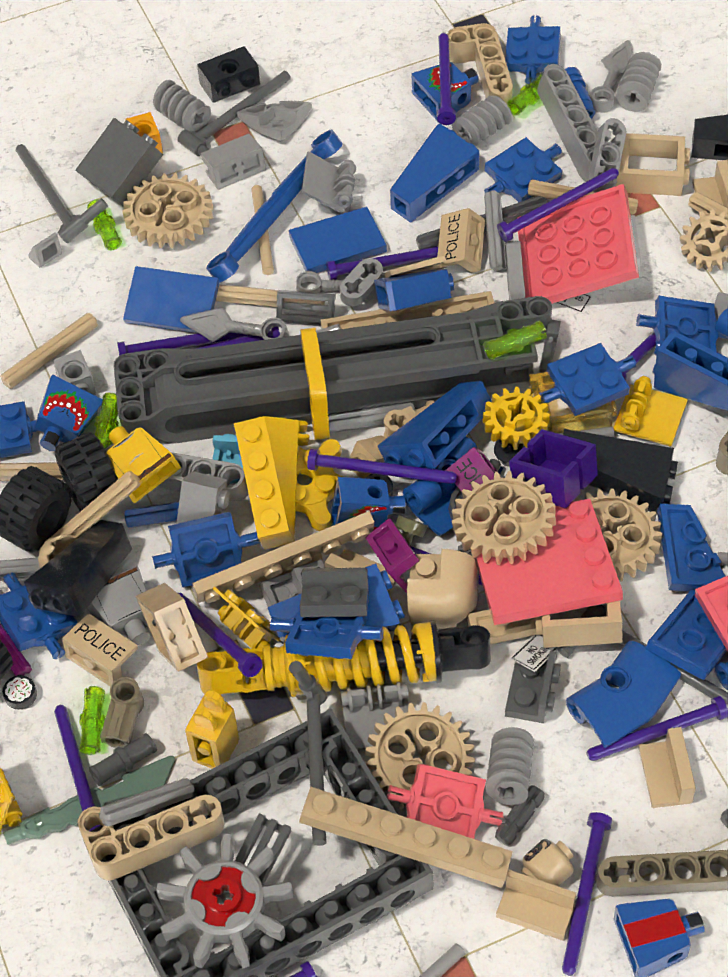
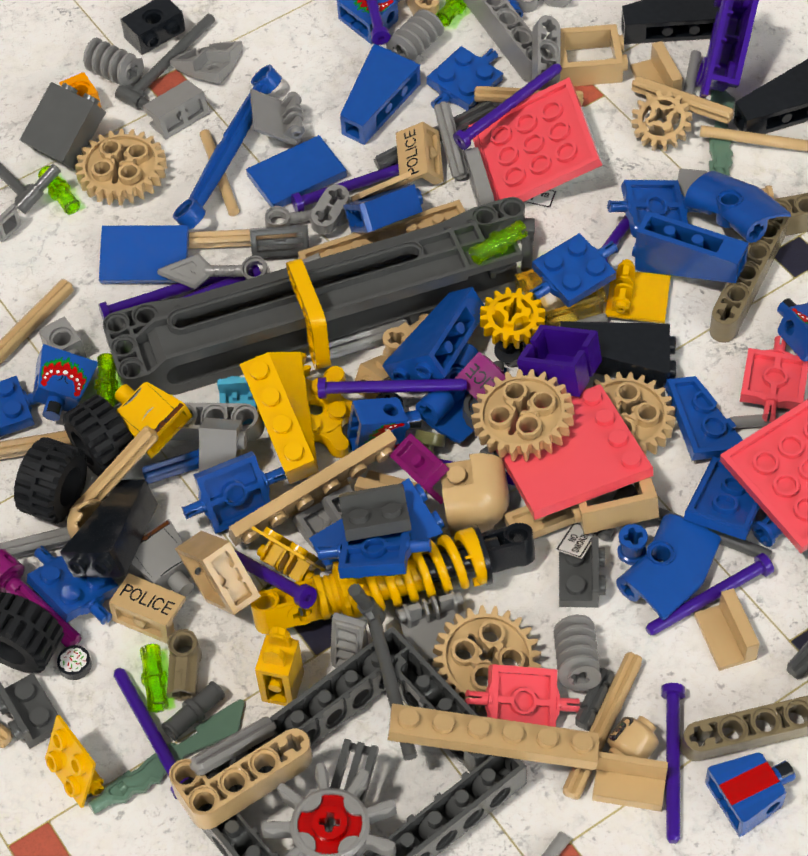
camera: 10 degrees left, 0 degrees up
(284, 712) = (347, 638): none -> light grey slope
(526, 838) = (605, 719): none -> tan axle
(592, 656) = (632, 543): none -> blue bush

